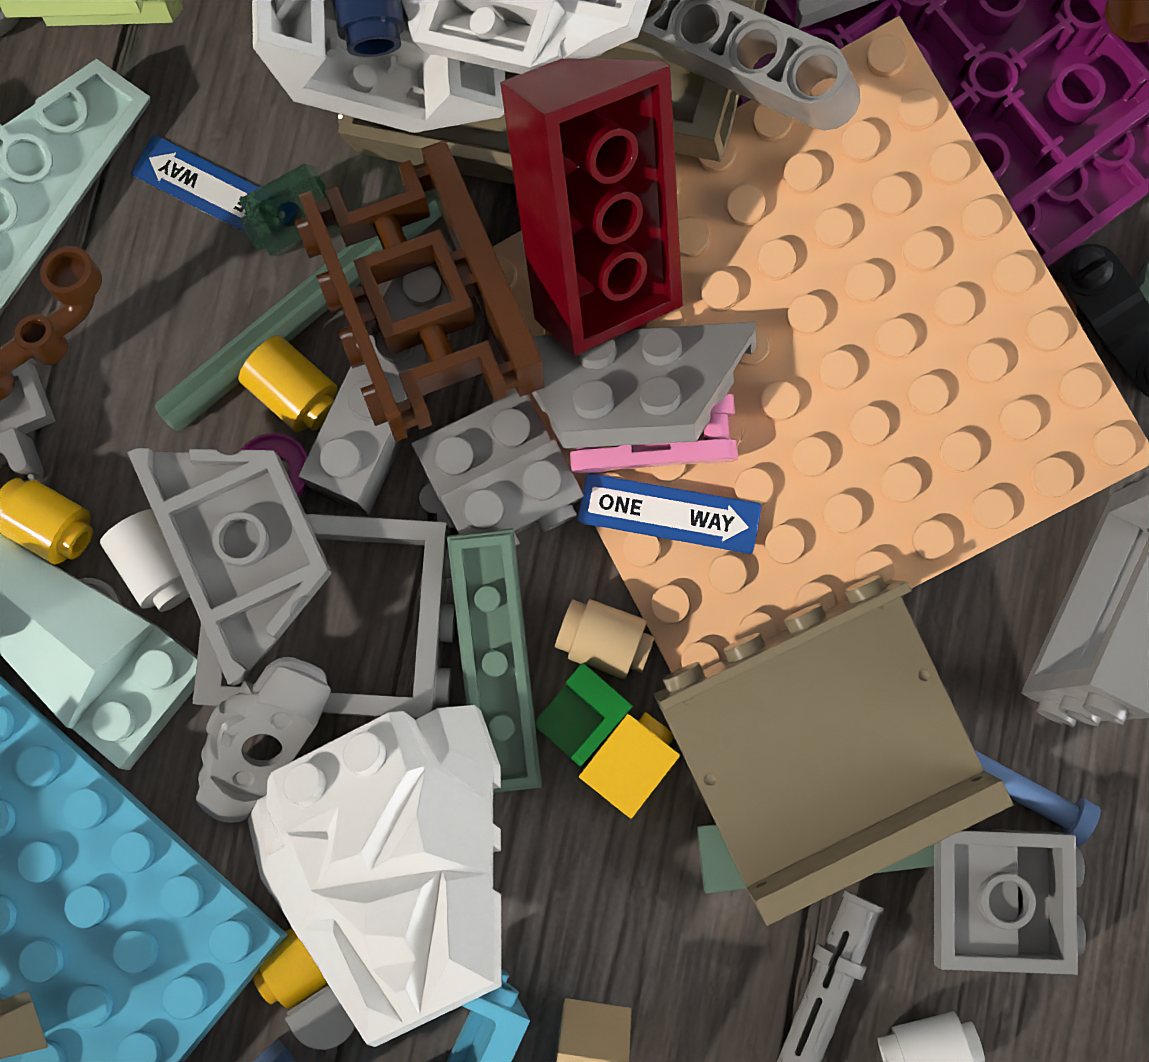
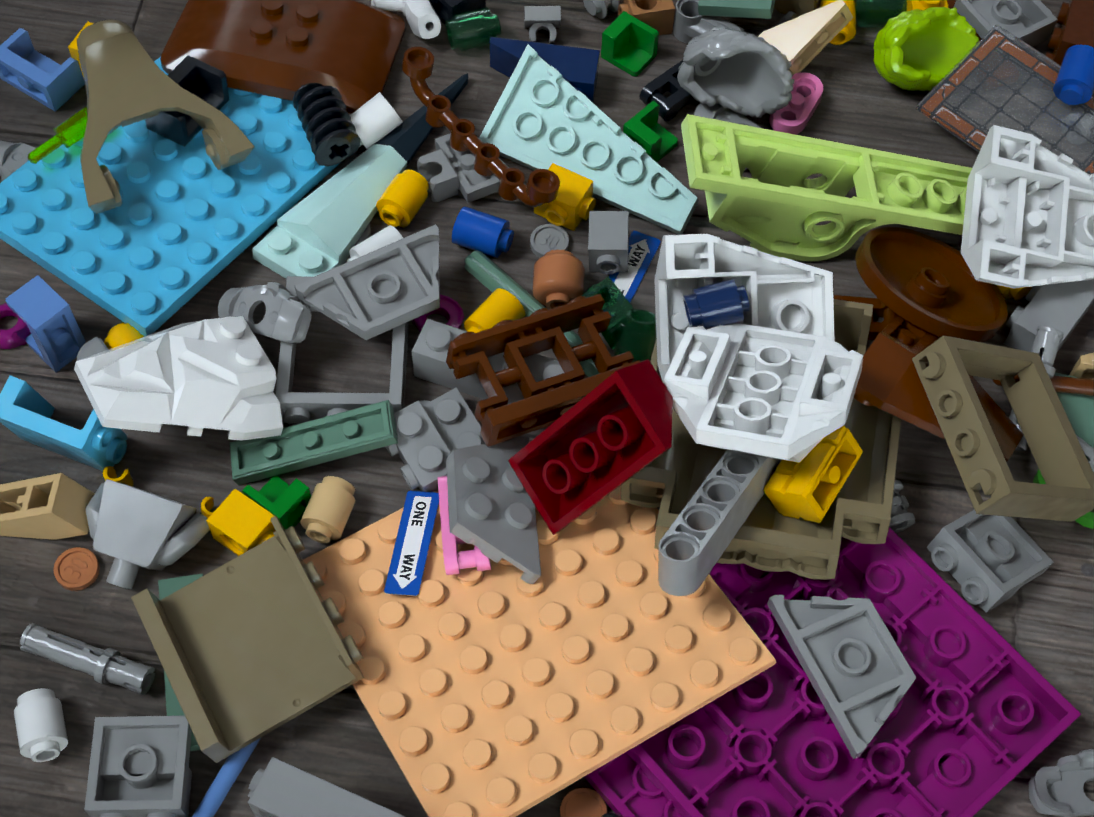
camera: 85 degrees right, 20 degrees down
(57, 233) = (572, 200): none -> yellow brick
(123, 394) = (482, 232): none -> blue brick
(141, 299) = (548, 238): none -> light grey piece
(161, 202) = (608, 241): none -> light grey brick
(228, 281) = (558, 278): none -> nougat head
(353, 165) = (637, 334): none -> clear green brick
(626, 923) = (141, 527): none -> light grey torso
(673, 1023) = (76, 569): none -> nougat piece

